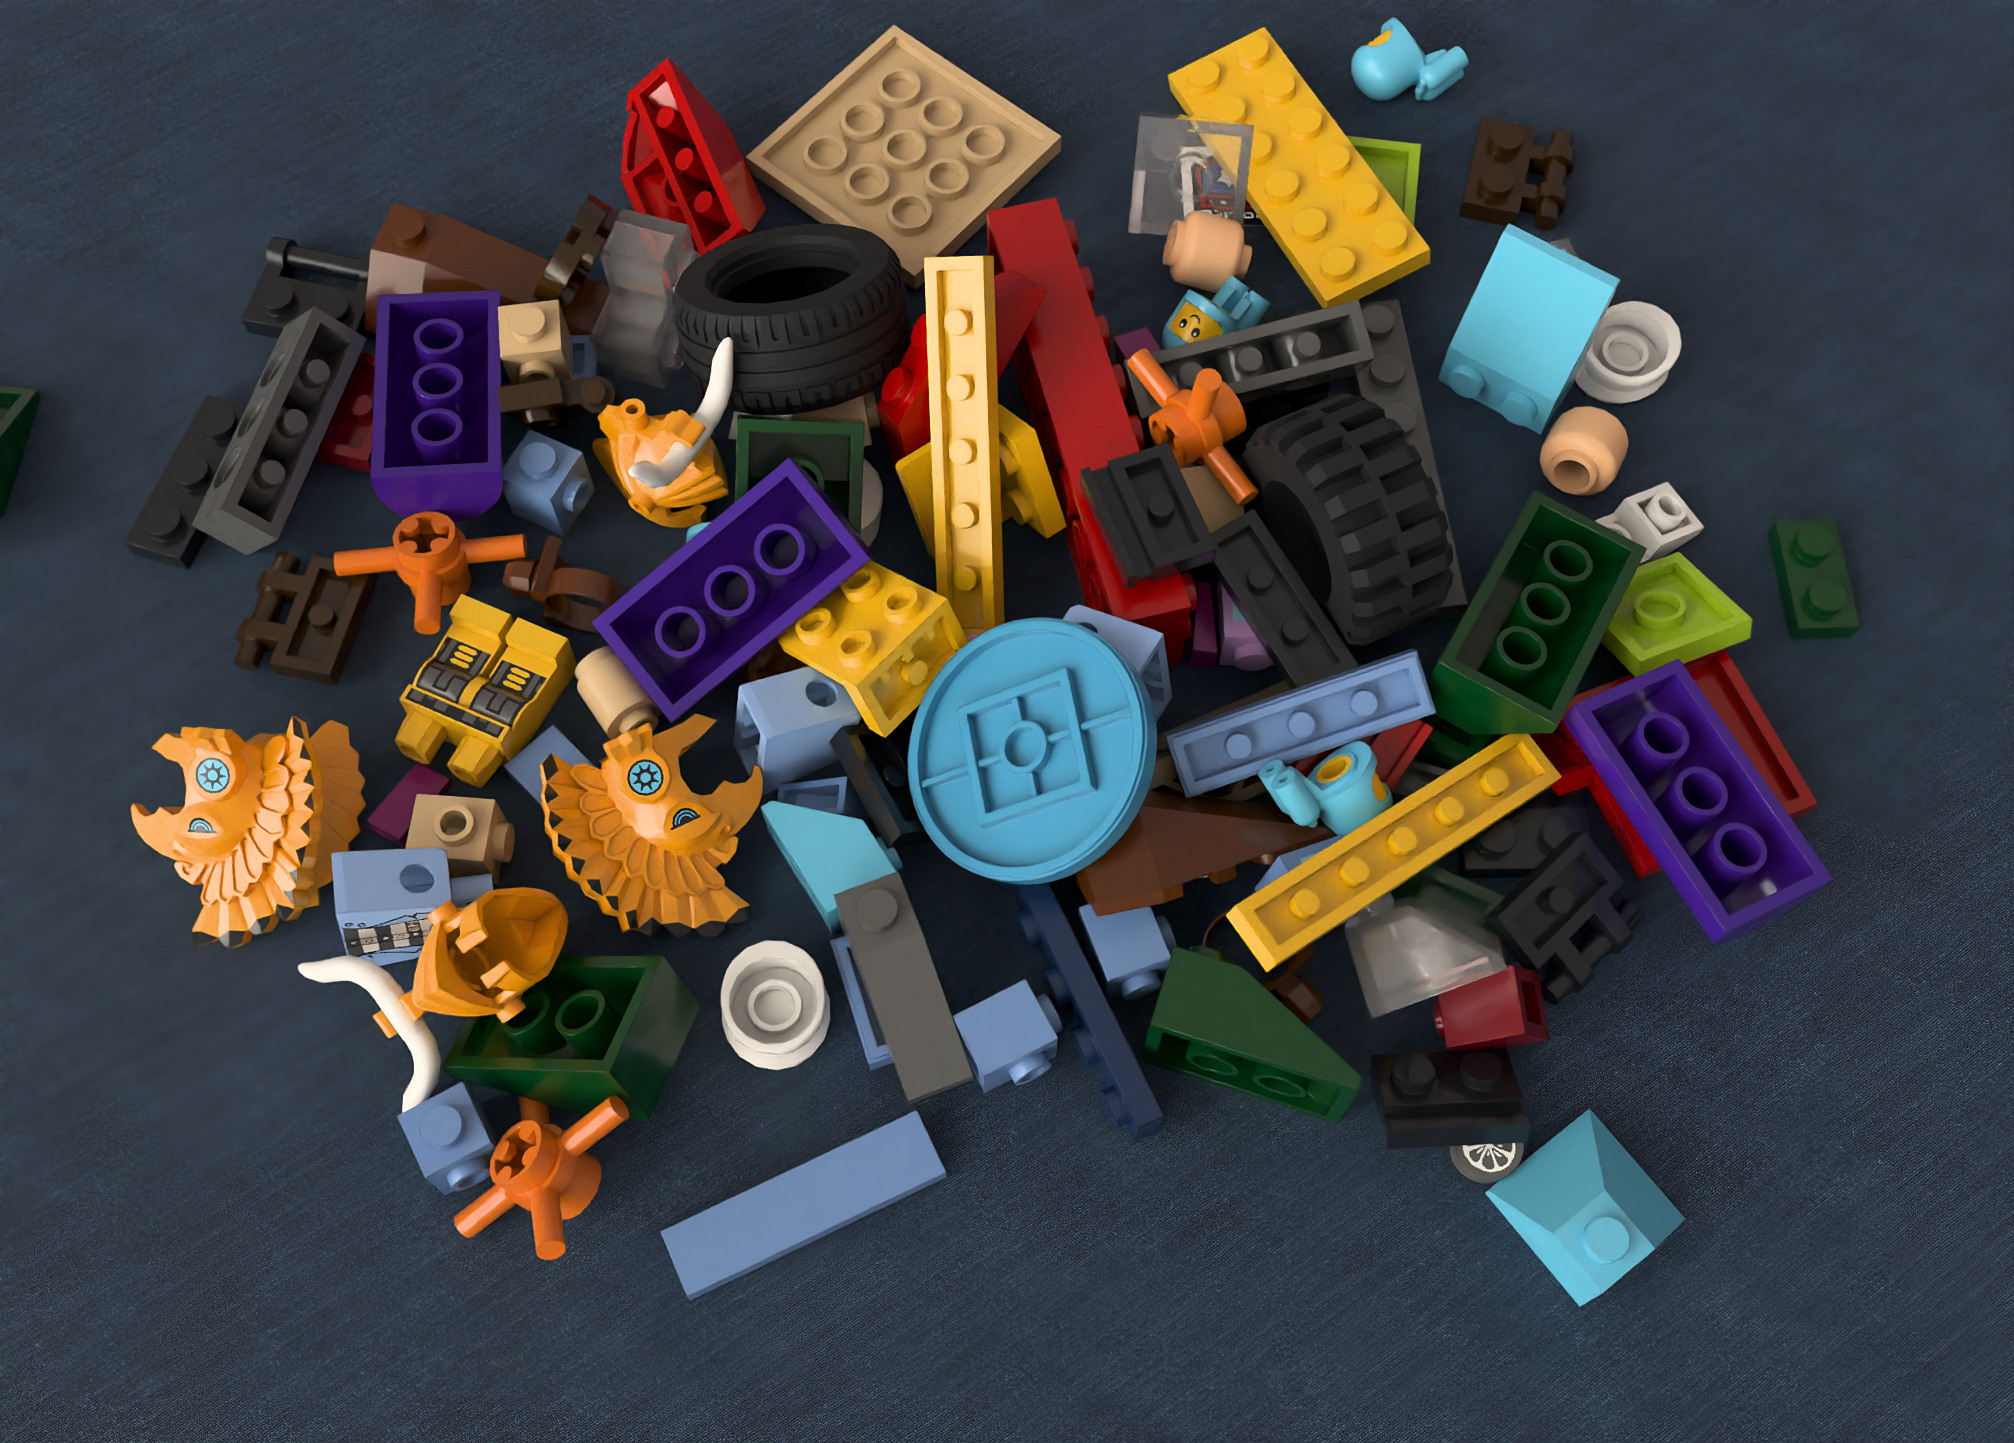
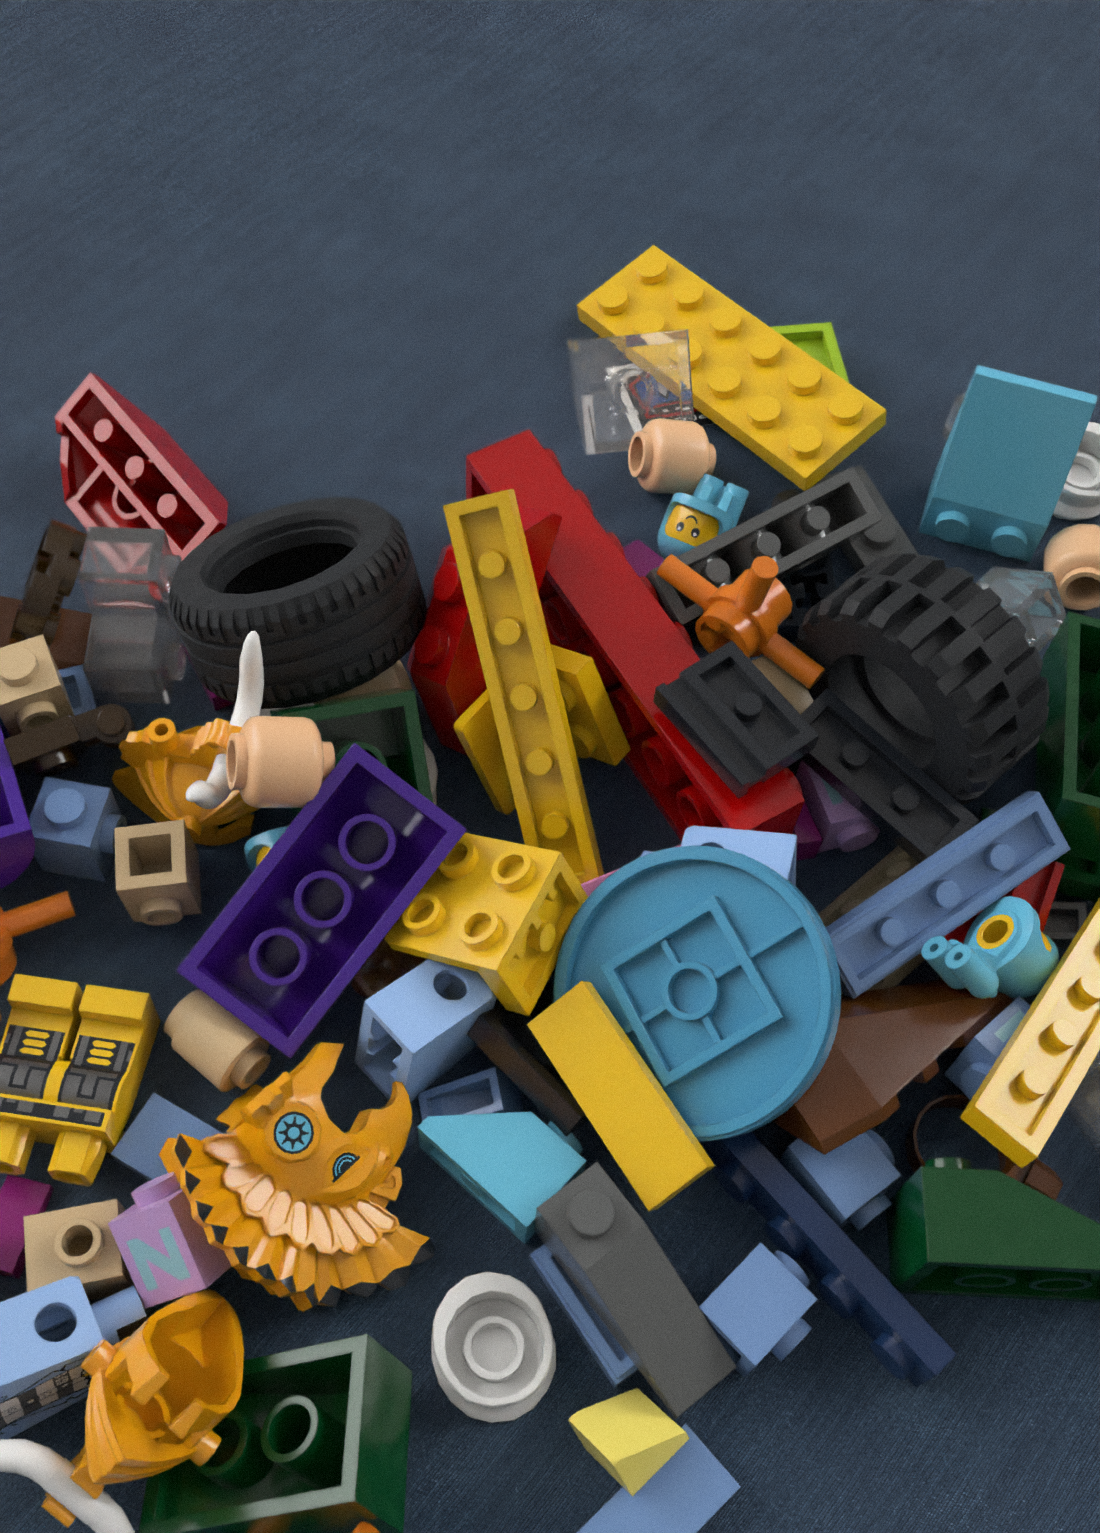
camera: 20 degrees left, 5 degrees down
(522, 845) = (164, 1245): none -> lavender brick
(553, 583) = (115, 933): reddish brown piece -> none
(606, 533) = (157, 872): none -> tan brick
(720, 459) = (278, 761): none -> light nougat head
(863, 1105) = (628, 1437): none -> light yellow slope
(905, 151) = (347, 419): tan plate -> none
(938, 822) = (620, 1096): none -> yellow tile
(1397, 62) = (784, 254): medium azure piece -> none
(1488, 478) = (1031, 598): none -> clear brick
(1499, 171) = (904, 337): dark brown plate -> none

